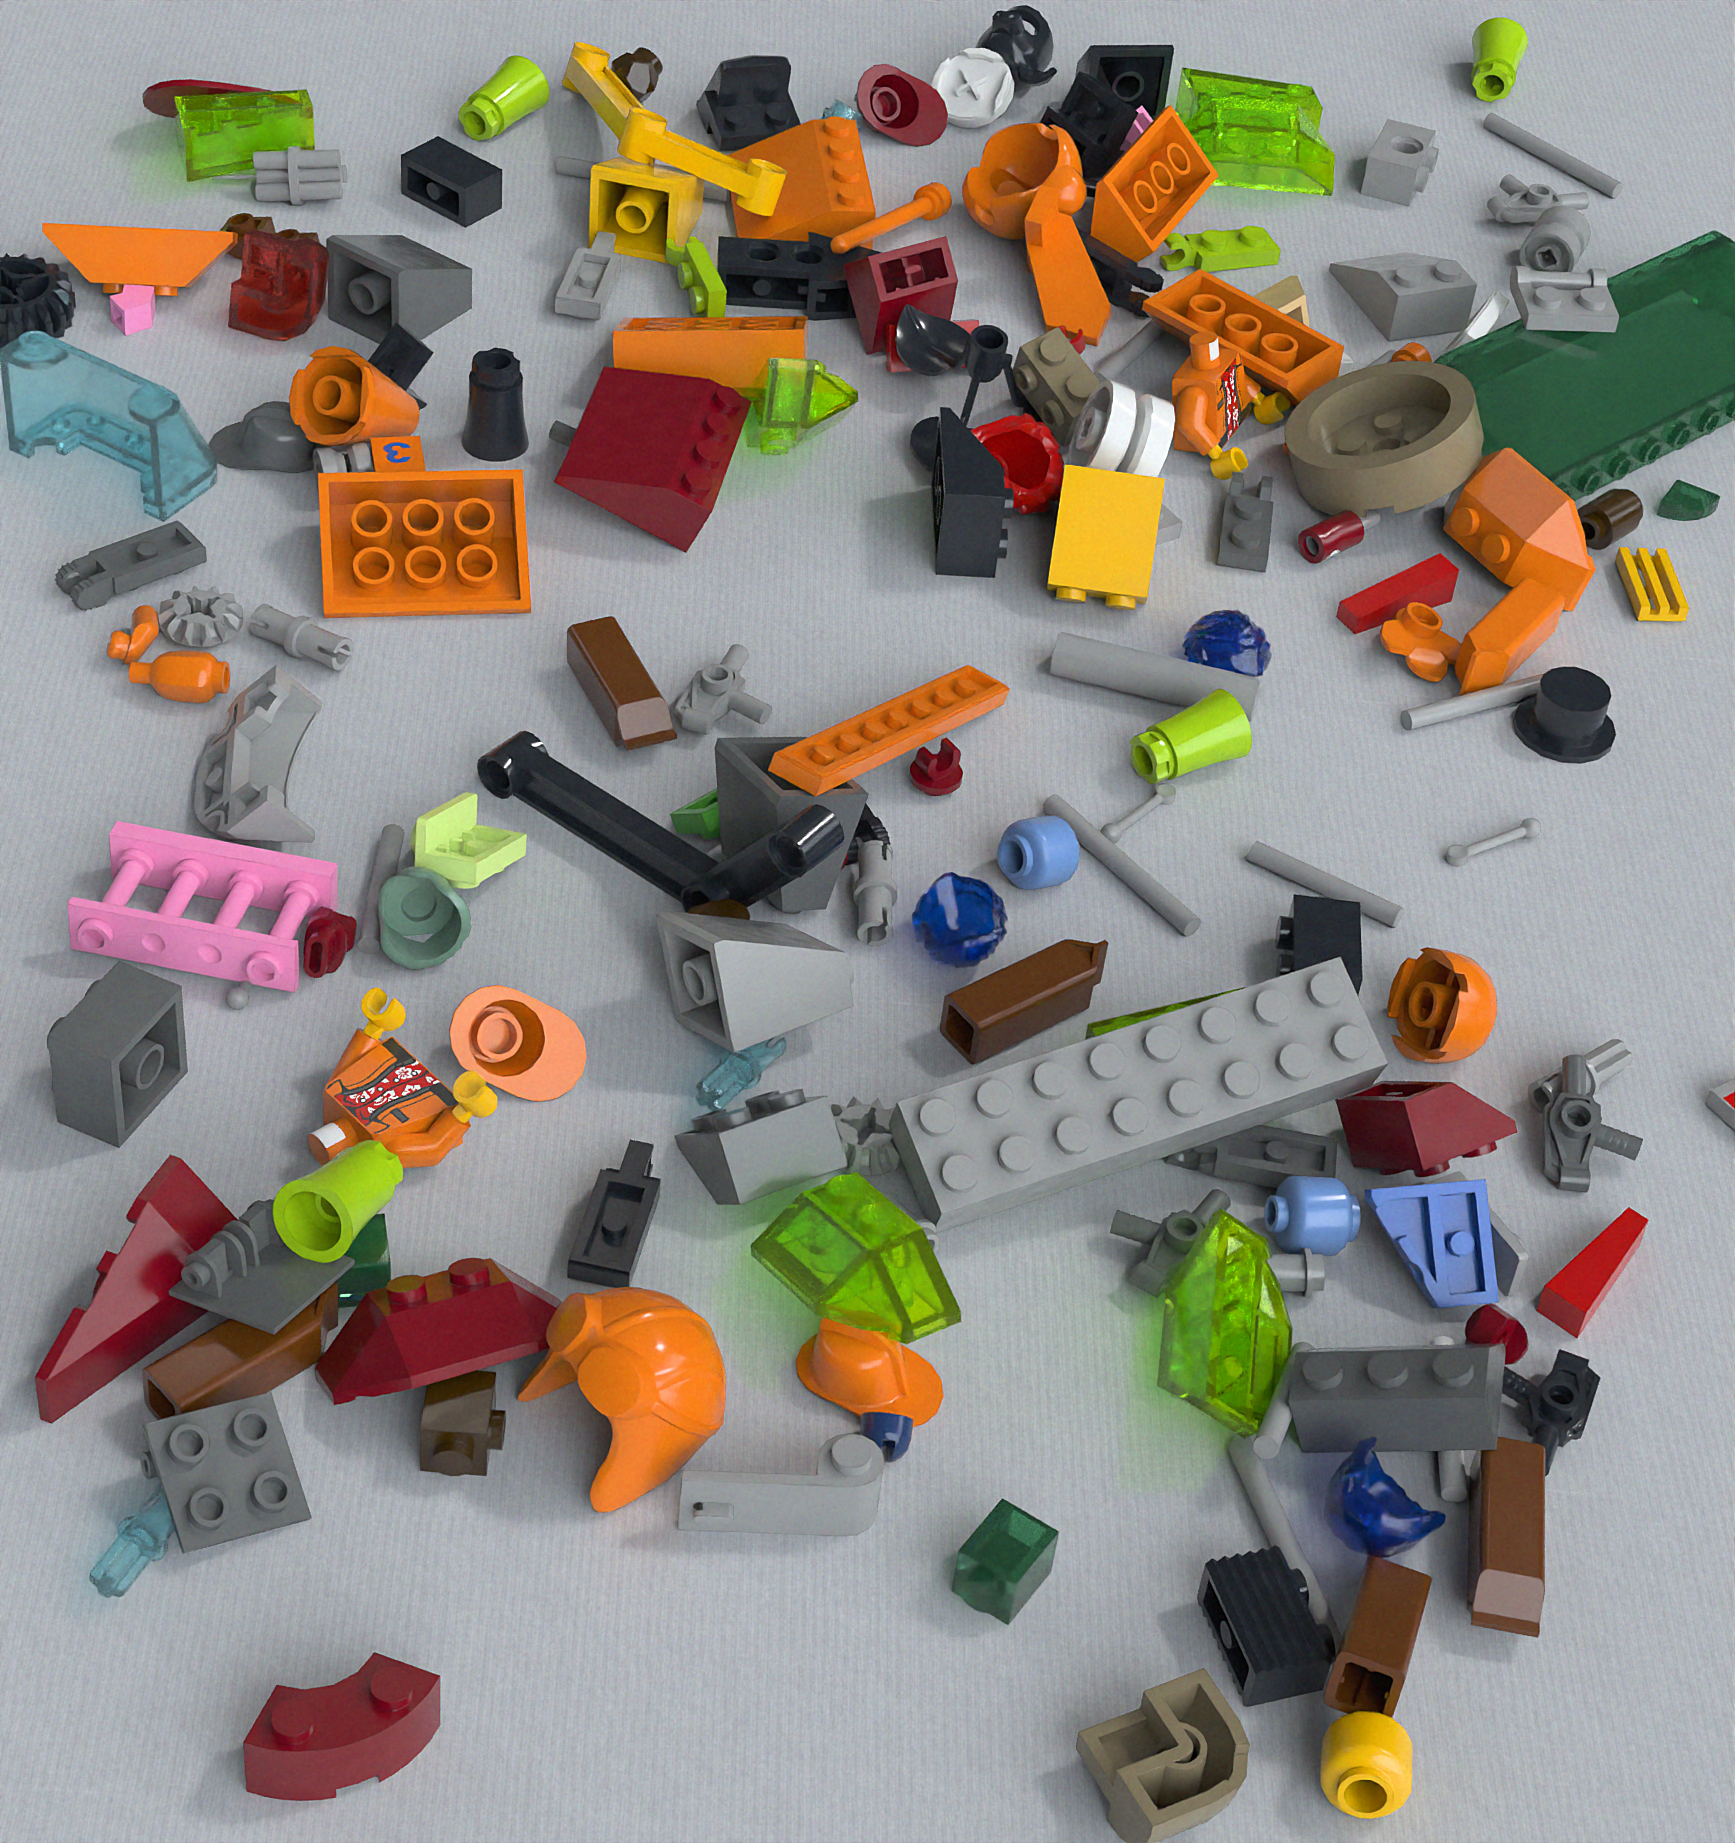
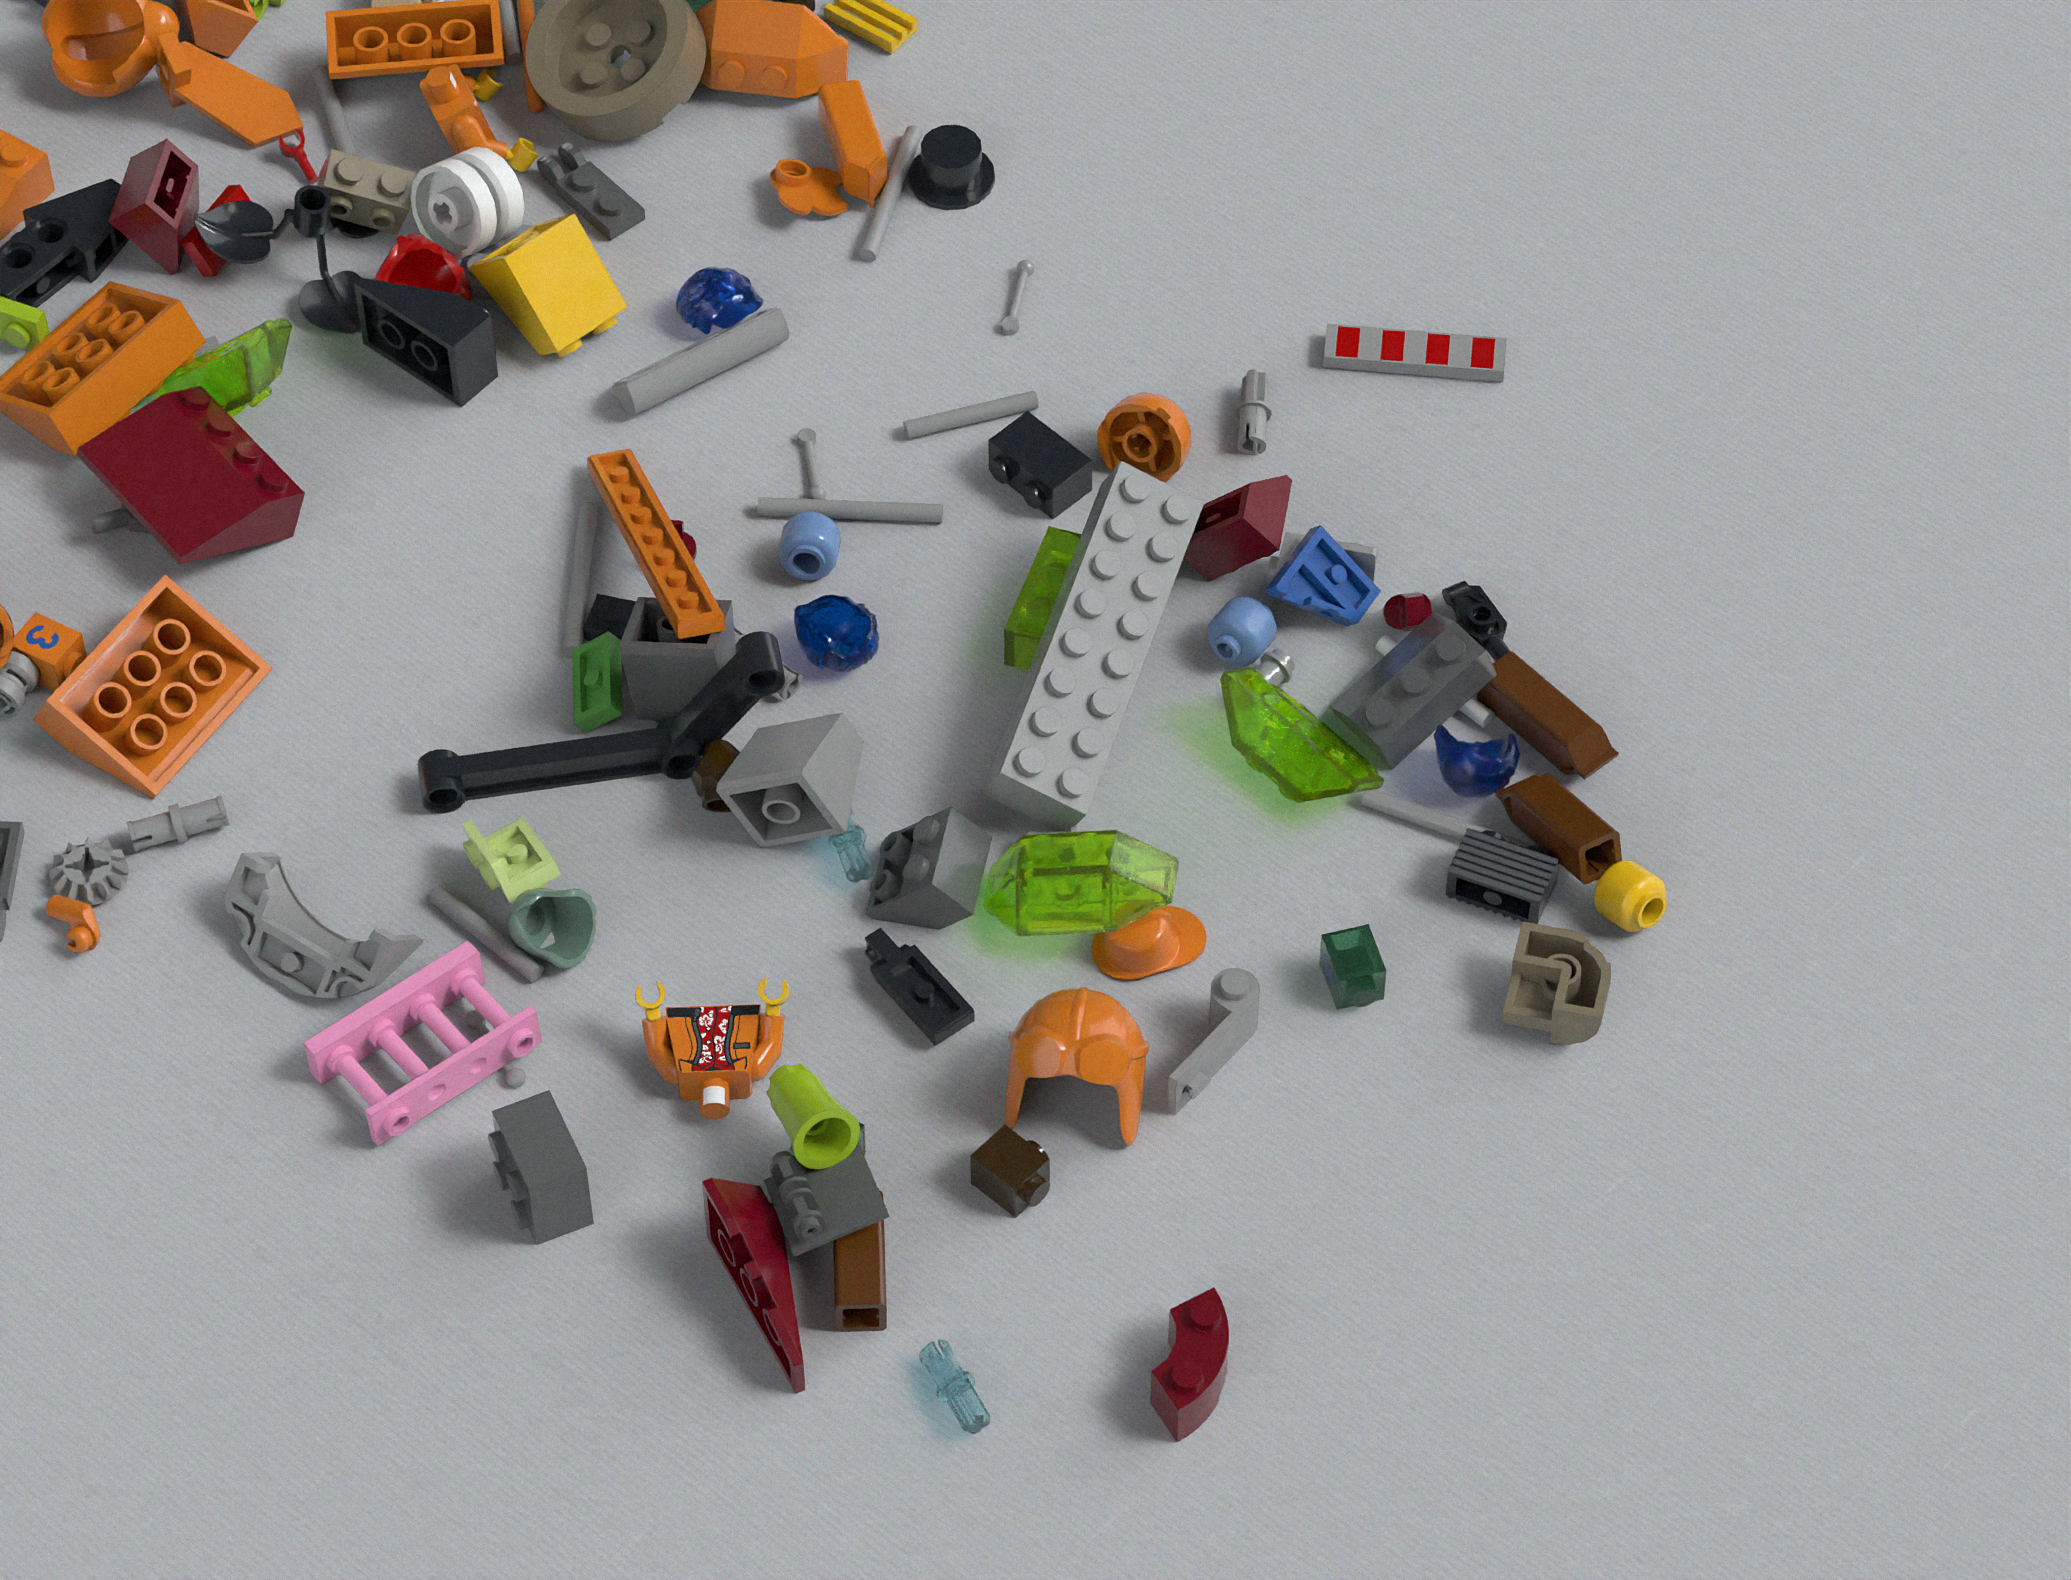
camera: 45 degrees left, 10 degrees up
(184, 675) = (155, 918): orange plant -> none
(225, 1472) = (946, 1314): dark grey hinge -> none
(327, 941) = (514, 991): dark red piece -> none
(435, 1330) = (943, 1139): dark red wedge -> none
(495, 408) = (42, 550): black plant -> none
(517, 1043) = (722, 945): piece -> none
(618, 684) = (420, 669): reddish brown piece -> none
(718, 691) = (476, 617): light grey piece -> none
(879, 1151) = (983, 810): light grey gear -> none
(888, 1431) = (1207, 963): dark blue hinge -> none
(928, 203) = (40, 109): orange piece -> none
(1022, 998) = (930, 648): reddish brown piece -> none
(1118, 275) = (254, 55): black hinge -> none
(1168, 1241) = (1196, 713): dark grey piece -> none
(1192, 739) = (786, 384): lime plant -> none
(1262, 1156) = (1187, 610): dark grey hinge -> none
(1278, 1412) = (1364, 749): light grey bar -> none
(1335, 535) = (656, 155): dark red piece -> none
(1427, 583) = (750, 164): red piece -> none
(1574, 1127) = (1295, 449): dark grey piece -> none
(1585, 1281) = (1405, 539): red piece -> none

